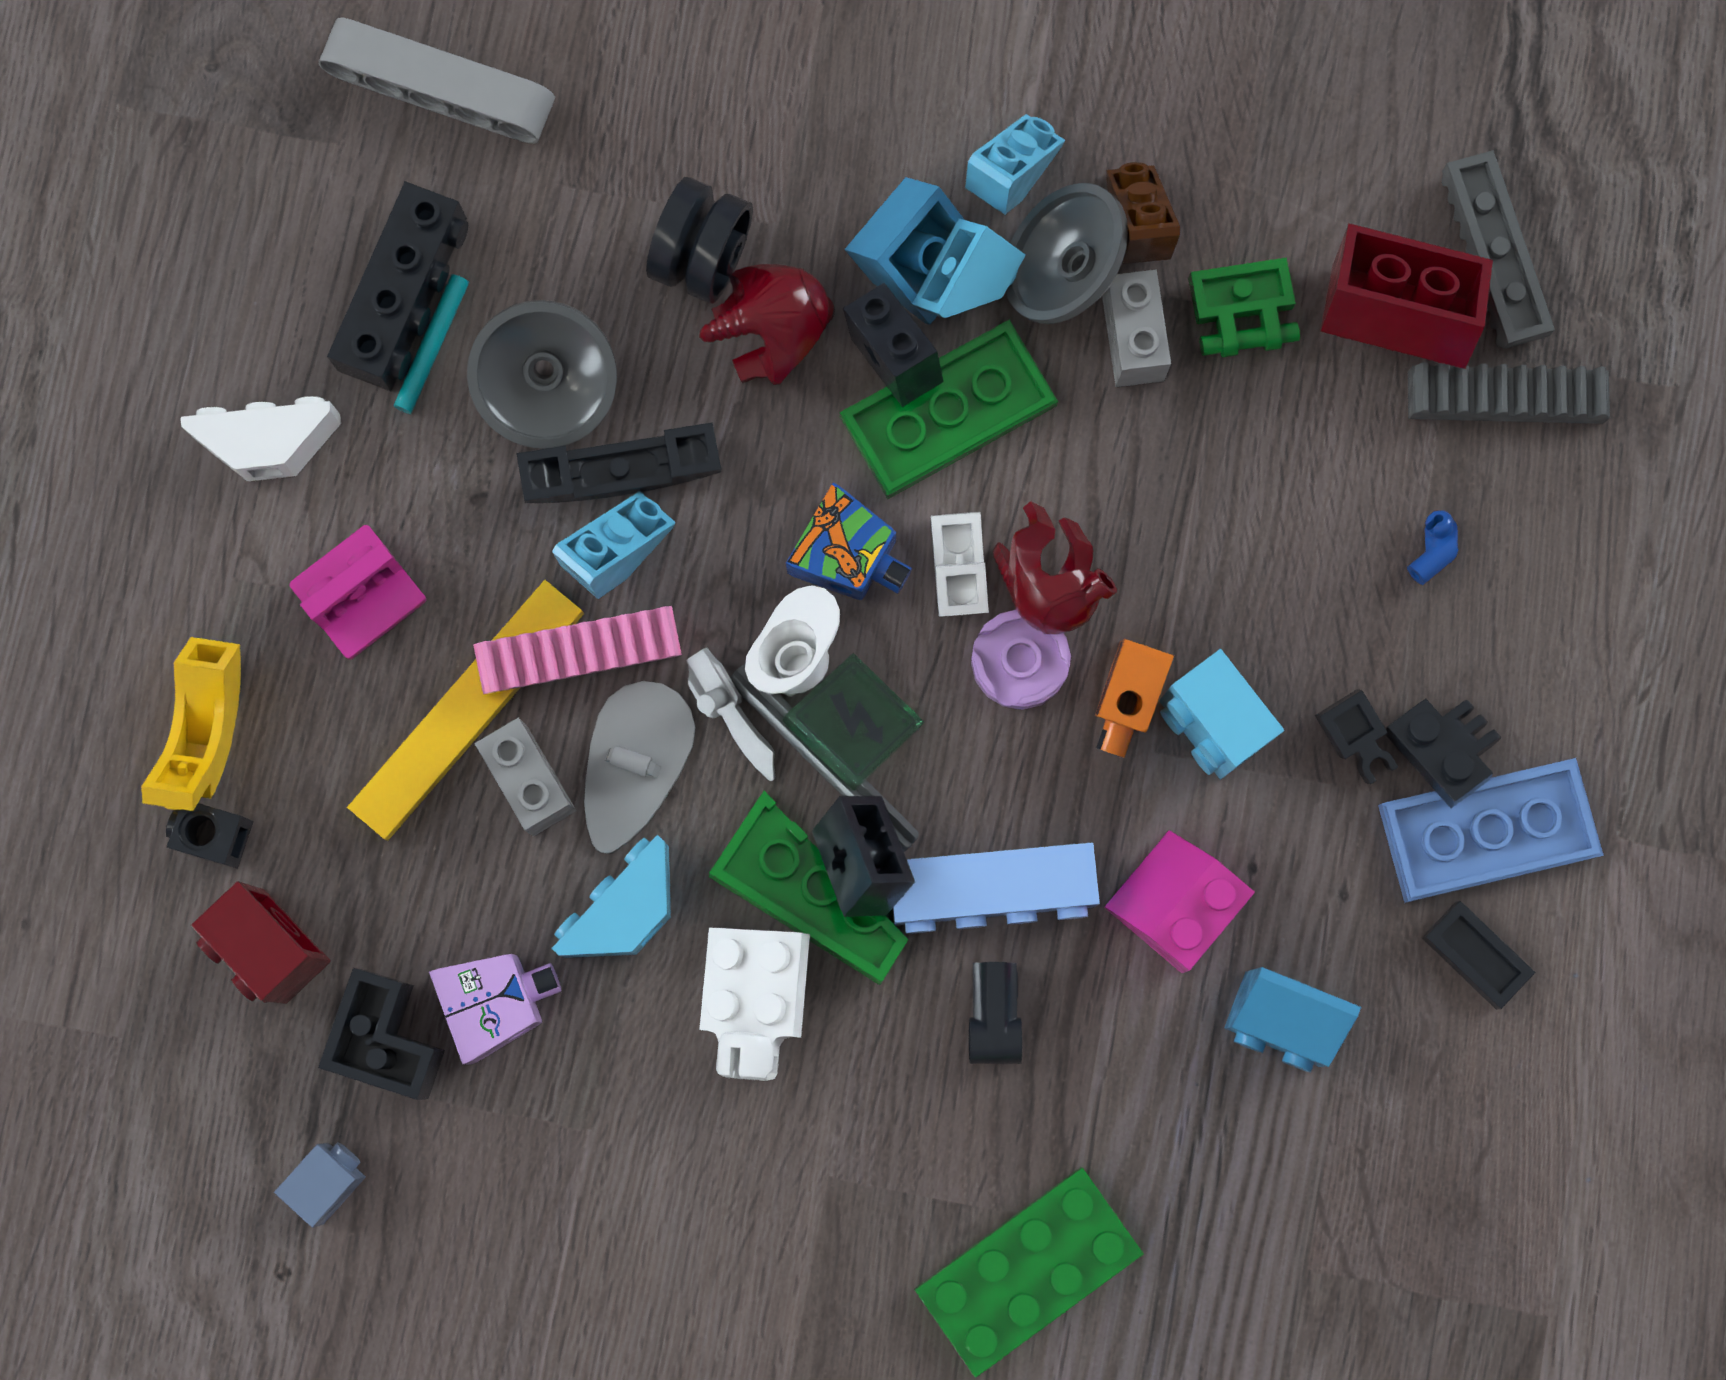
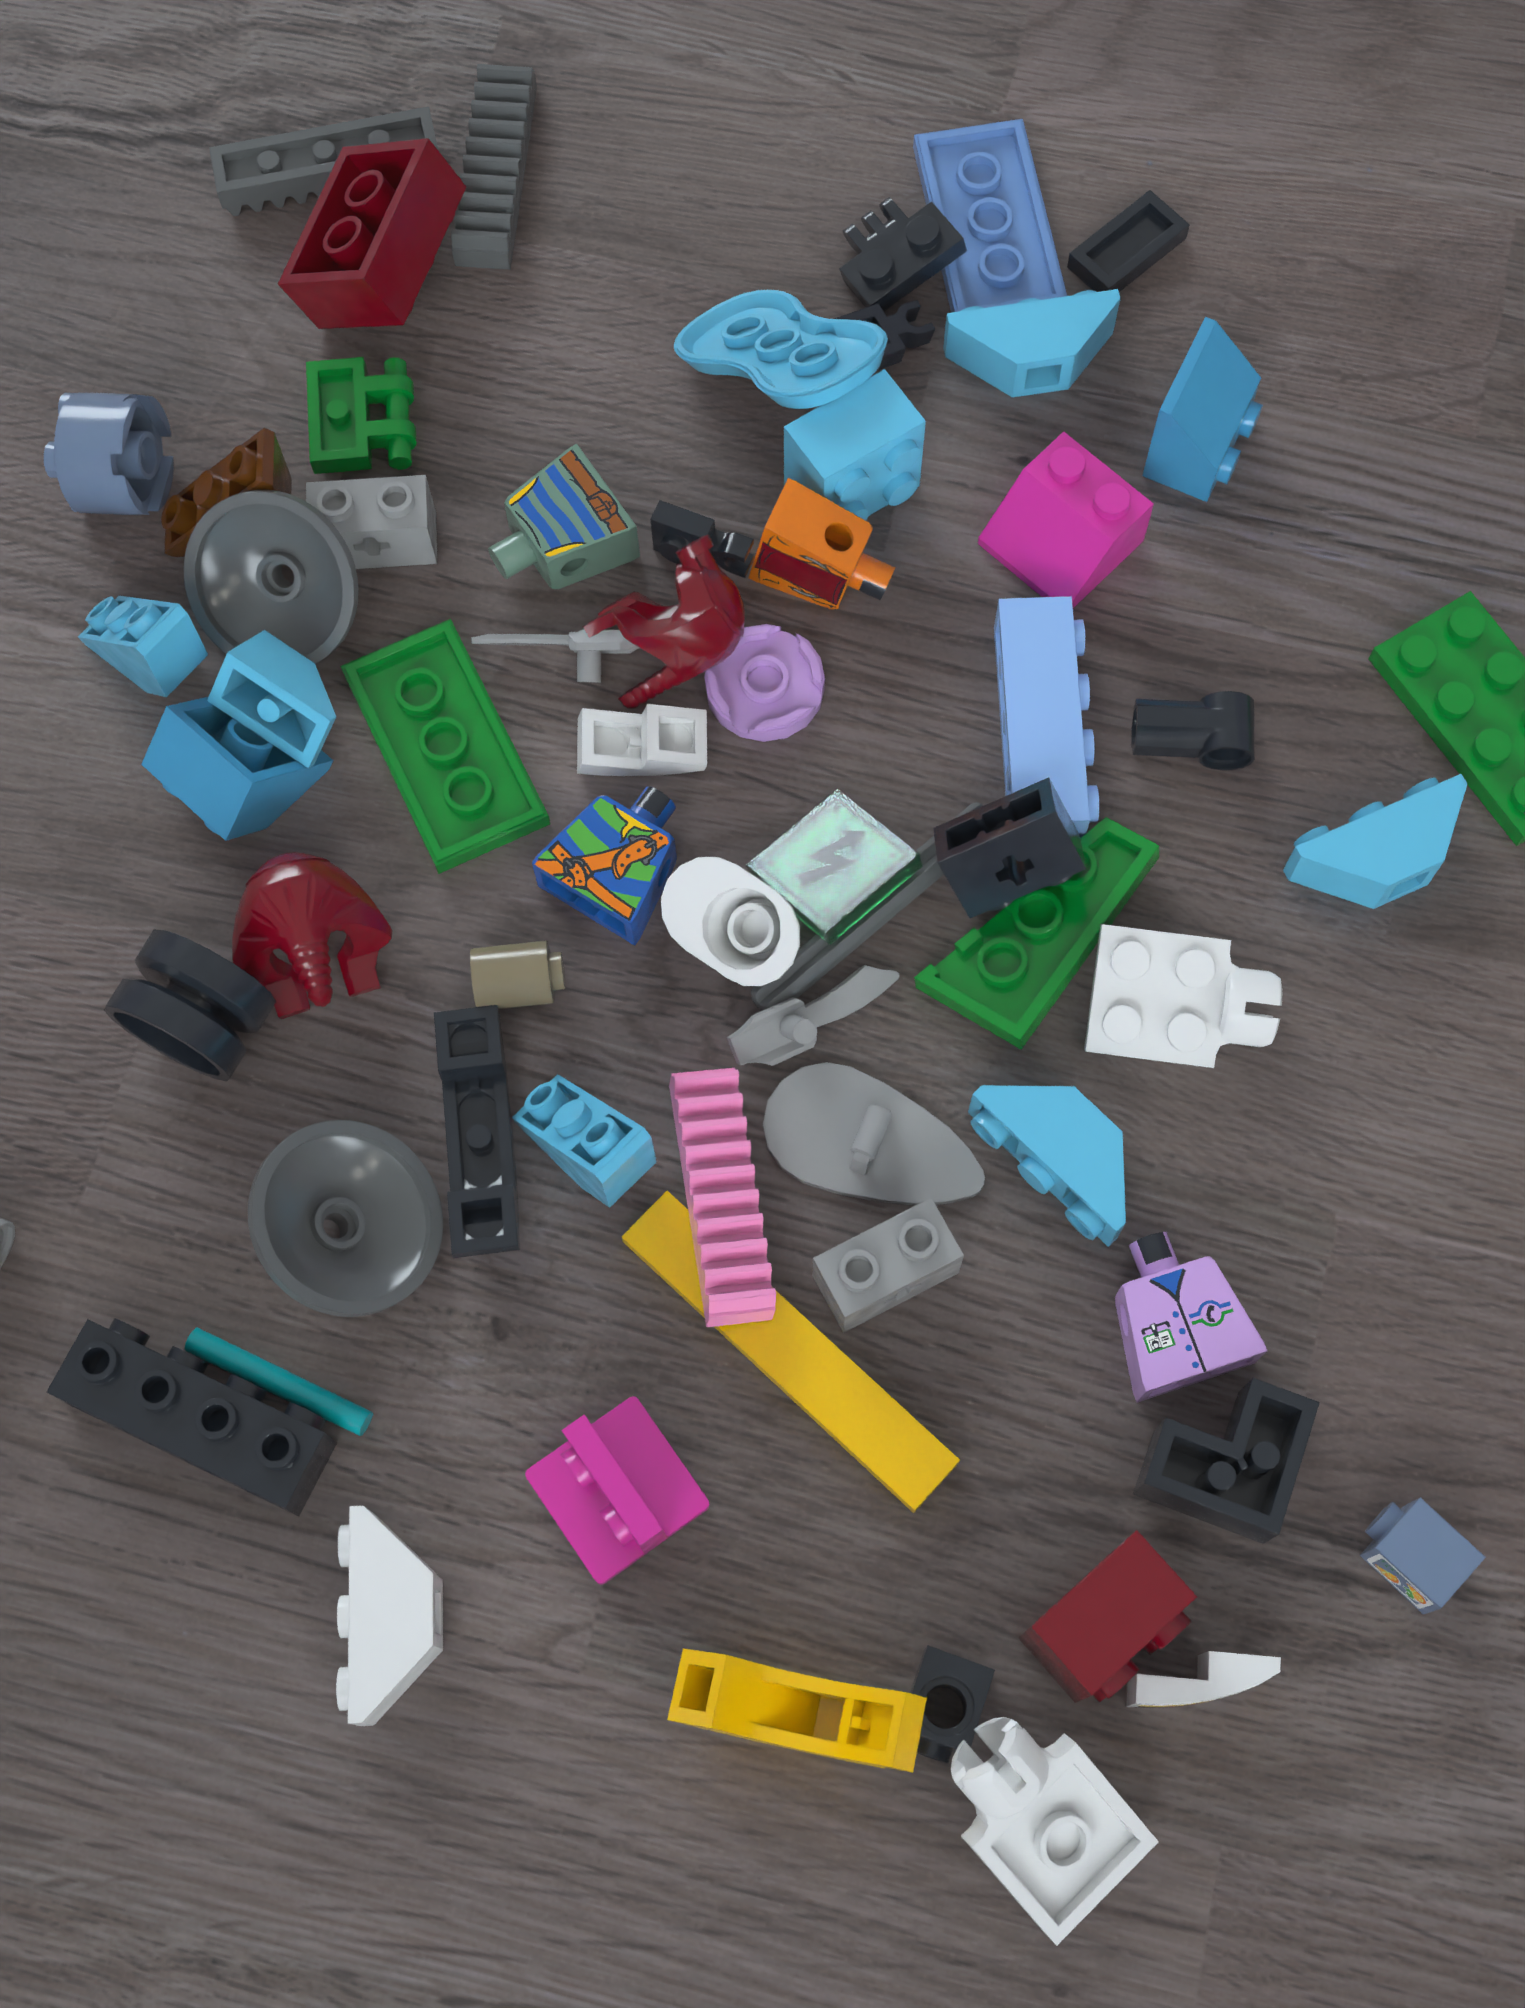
camera: 85 degrees left, 10 degrees down
(122, 905) = (1047, 1824): none -> white plate
(229, 1036) = (1217, 1677): none -> white slope
(748, 481) = (516, 974): none -> dark tan brick
(893, 344) = (359, 786): black brick -> none
(895, 1173) = (1381, 848): none -> medium azure slope
(1017, 515) = (587, 649): none -> light grey piece
(1142, 584) = (677, 527): none -> black plate
(1149, 483) = (565, 525): none -> sand green torso
(1178, 113) = (110, 453): none -> sand blue brick
(1309, 655) = (783, 348): none -> medium azure plate
(1362, 873) = (1032, 343): none -> medium azure slope
(1440, 547) = (665, 244): blue arm -> none

